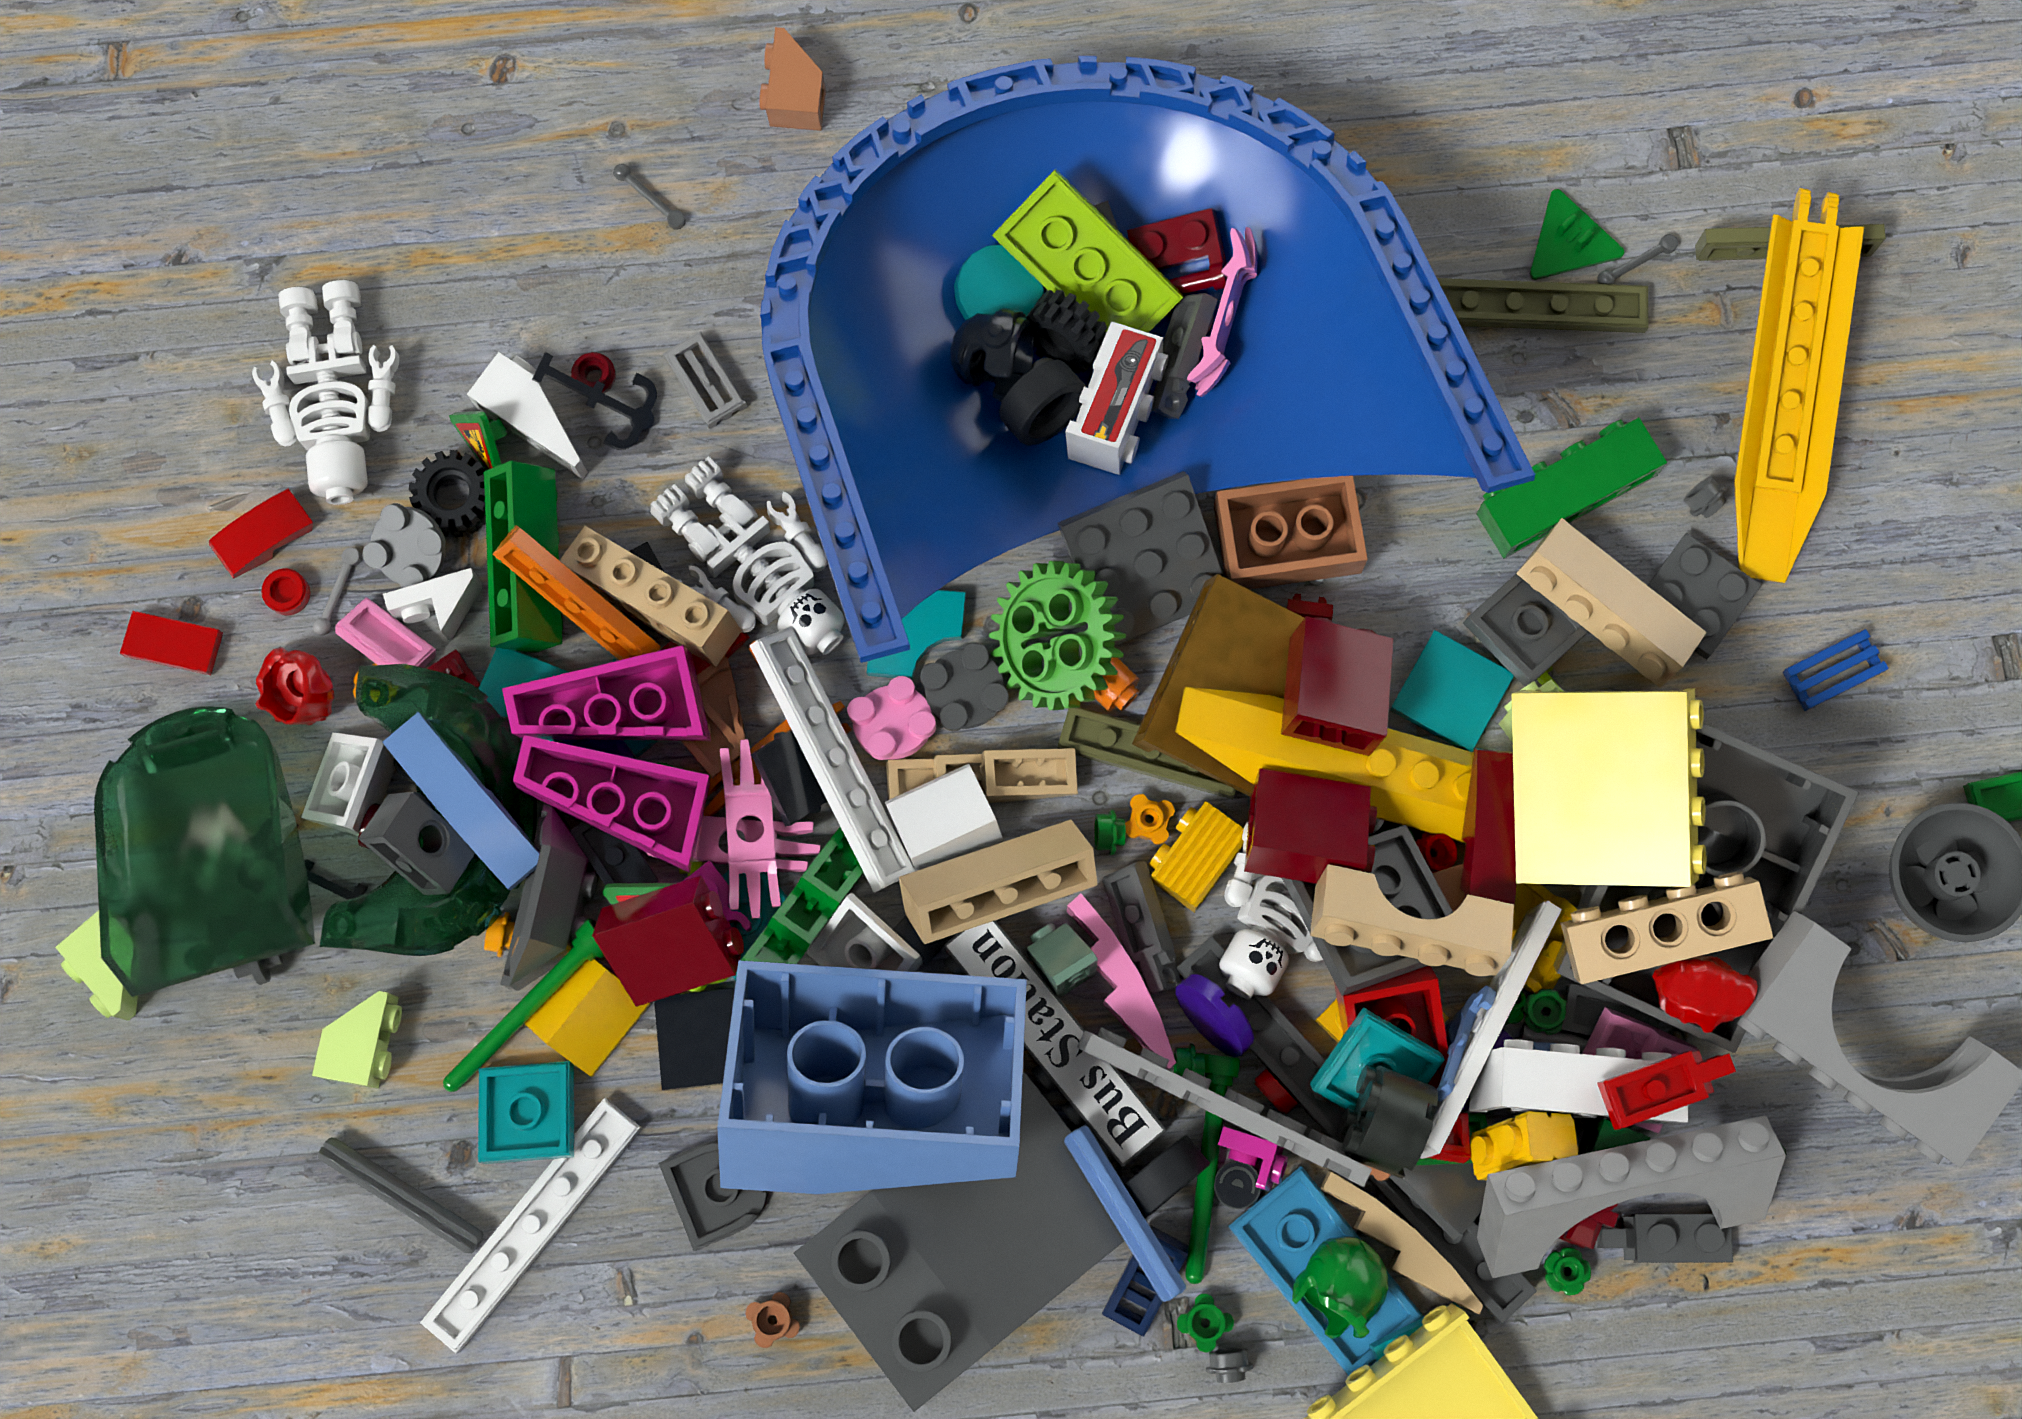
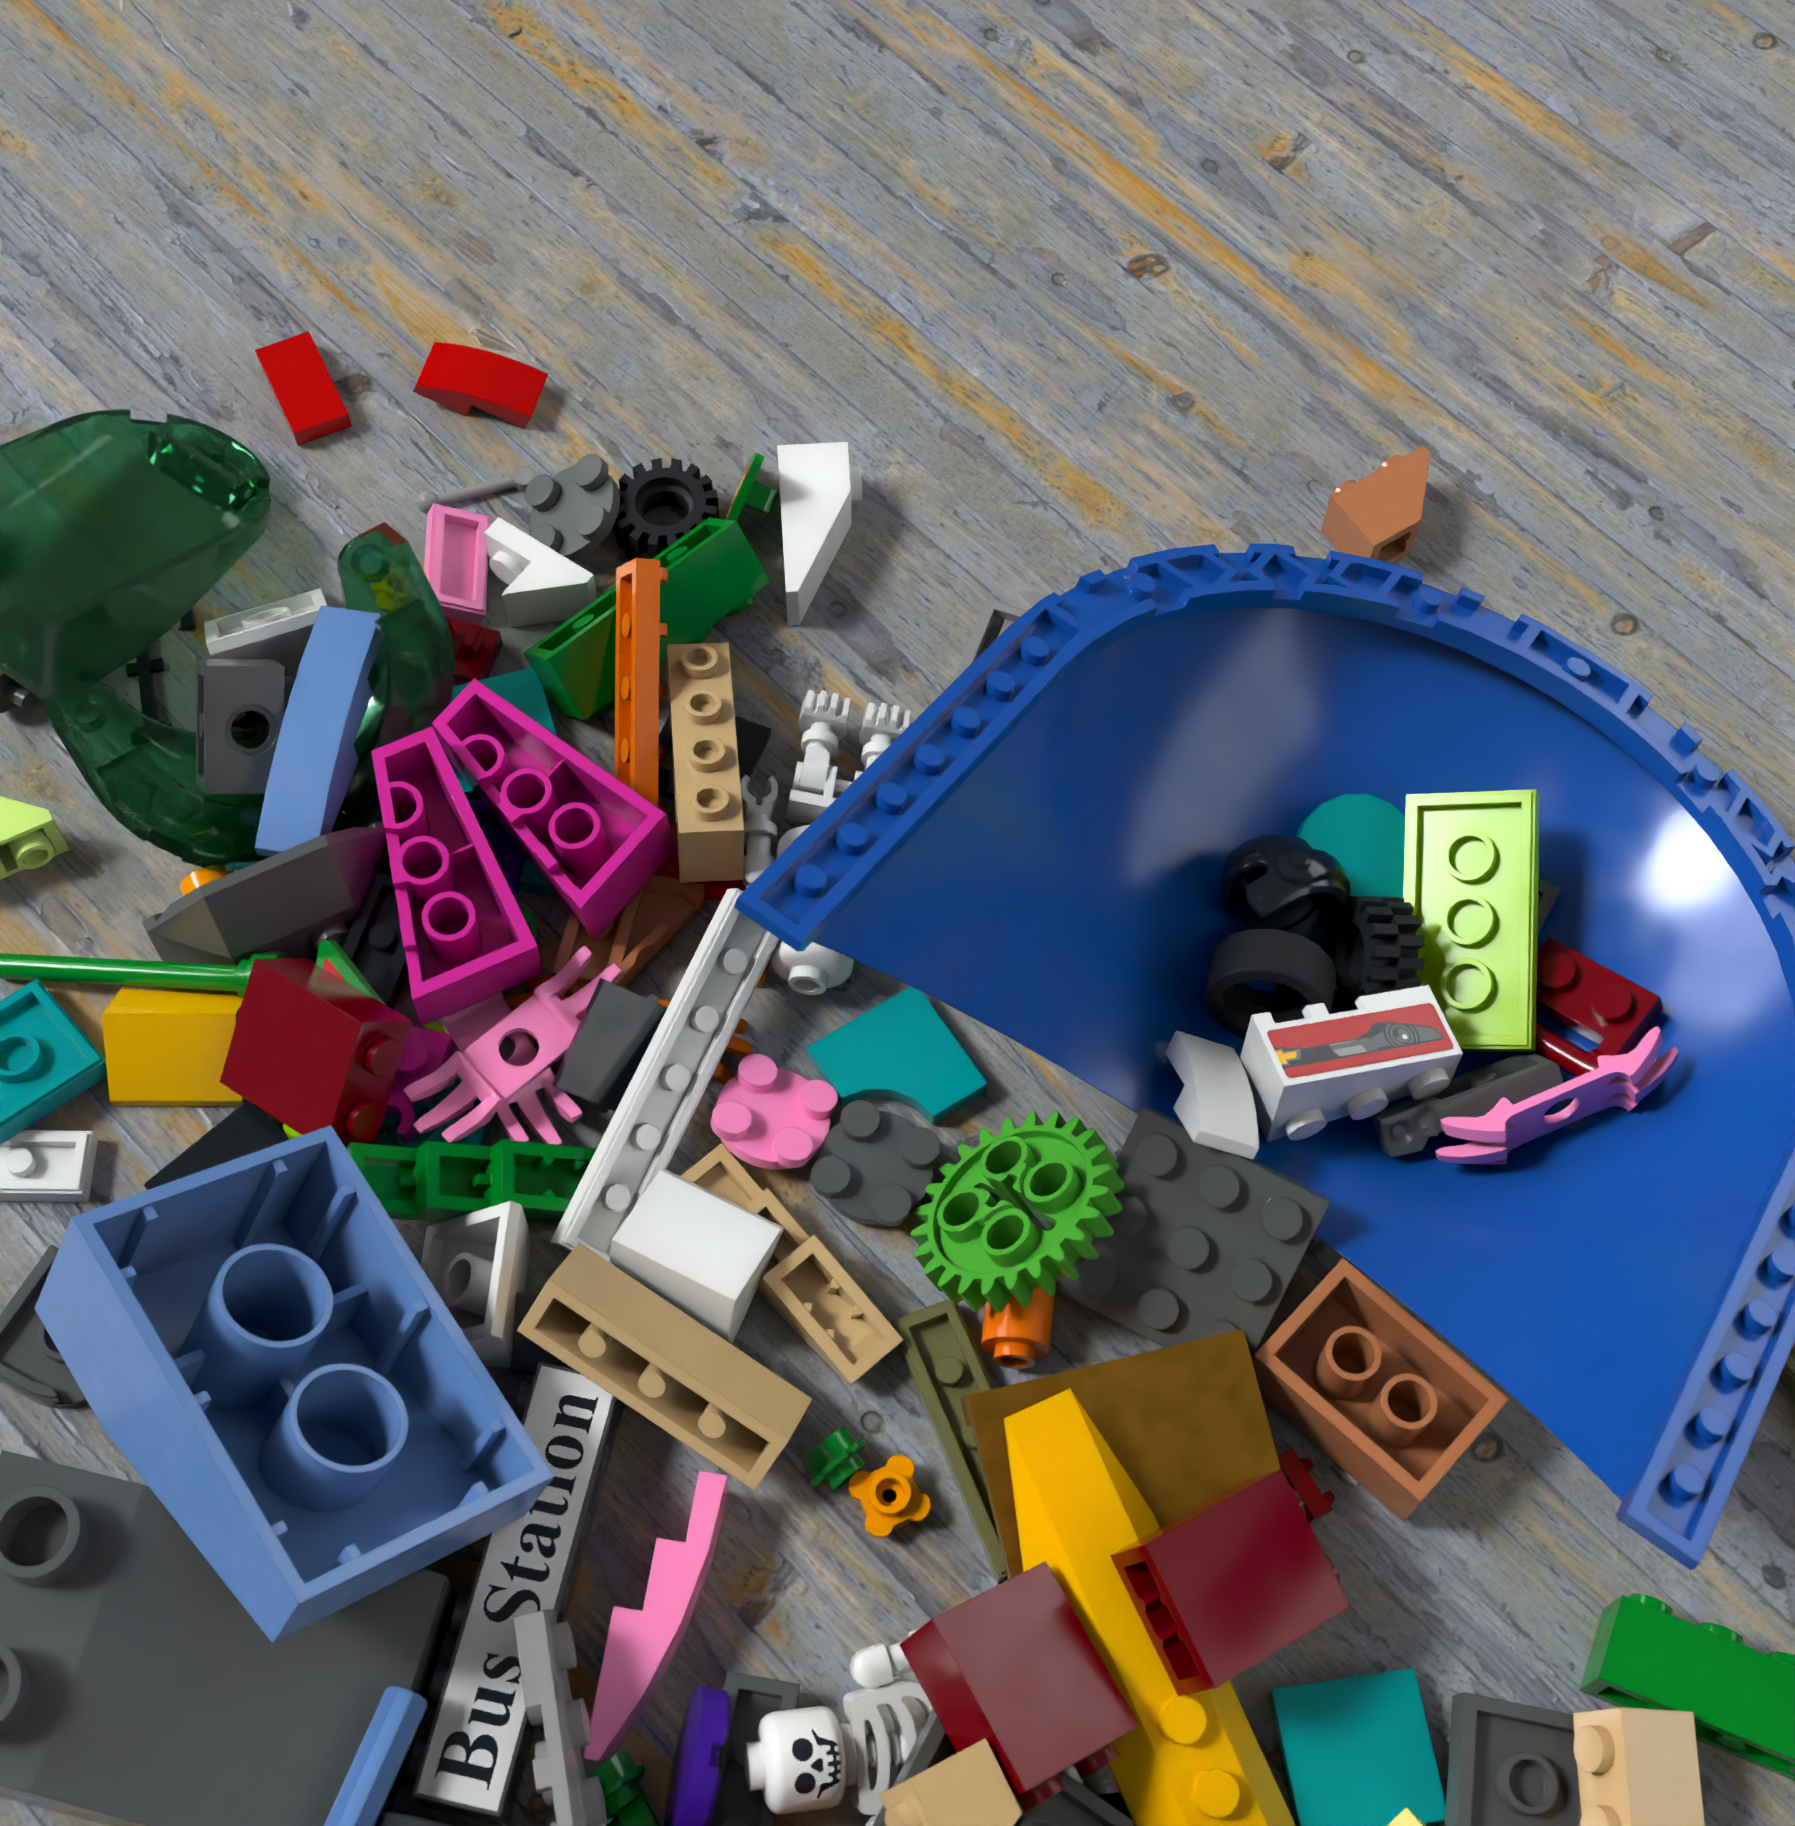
camera: 45 degrees right, 15 degrees down
(285, 591) = (438, 447): red tile -> none
(294, 687) = (333, 514): red hair -> none
(333, 457) = (643, 342): white piece -> none
(594, 361) = (906, 539): dark red plate -> none
(640, 418) = (900, 628): black piece -> none
(675, 218) = (1140, 512): dark grey hinge -> none
(1062, 958) = (621, 1516): sand green slope -> none
(1085, 483) = (1216, 1096): none -> white slope
(1142, 925) = (748, 1590): dark grey hinge -> none
(1198, 855) = (884, 1589): yellow brick -> none

